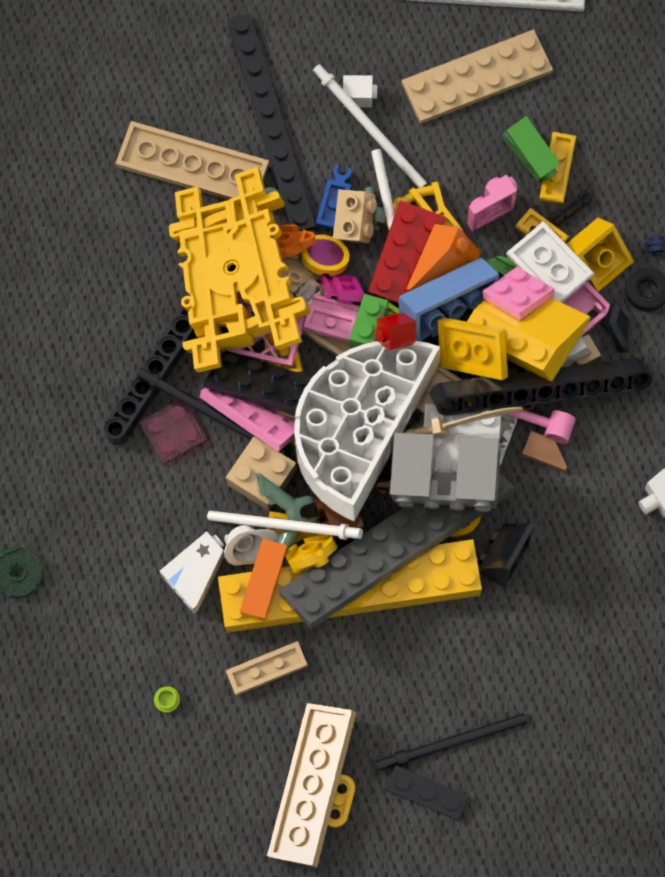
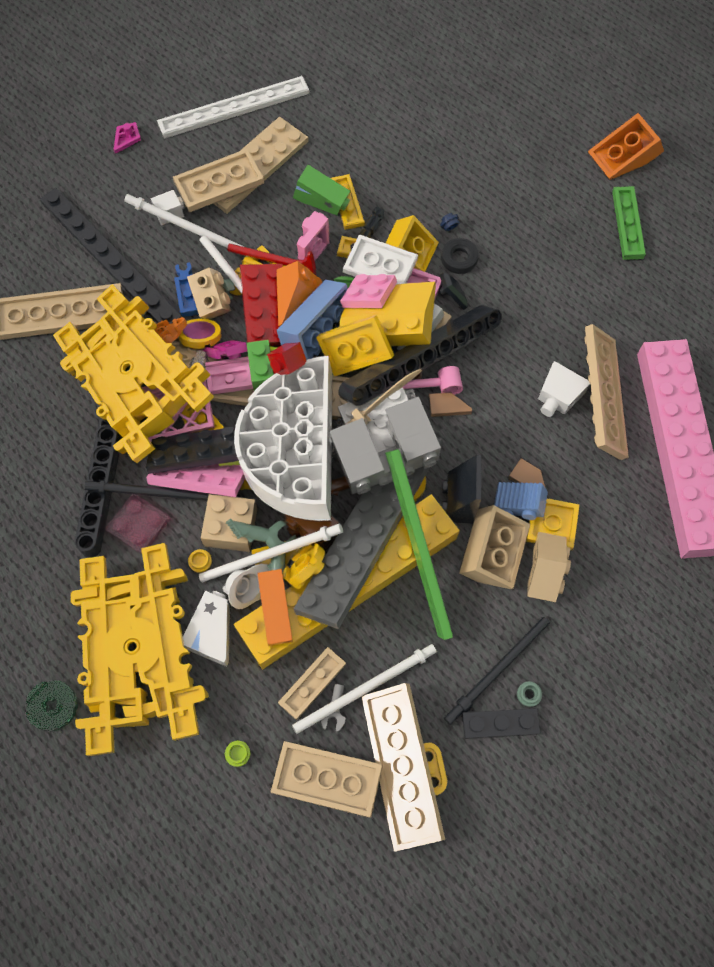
camera: 30 degrees left, 5 degrees down
(121, 517) = (143, 613): none -> yellow piece
(216, 498) = (200, 561): none -> yellow plate
(237, 762) = (327, 779): none -> tan plate
(276, 703) = (337, 692): none -> light grey bar
(312, 697) = (418, 657): none -> white bar
(426, 85) = (218, 180): none -> tan plate
(430, 584) = (419, 544): none -> bright green tile
(469, 770) = (537, 694): none -> sand green plate
(472, 229) = (308, 261): none -> red piece
(511, 623) = (495, 547): none -> tan slope
(552, 666) = (548, 567): none -> tan brick
(561, 587) = (522, 499): none -> medium blue brick
(584, 625) = (558, 519): none -> yellow plate
(587, 568) = (526, 473): none -> medium nougat tile

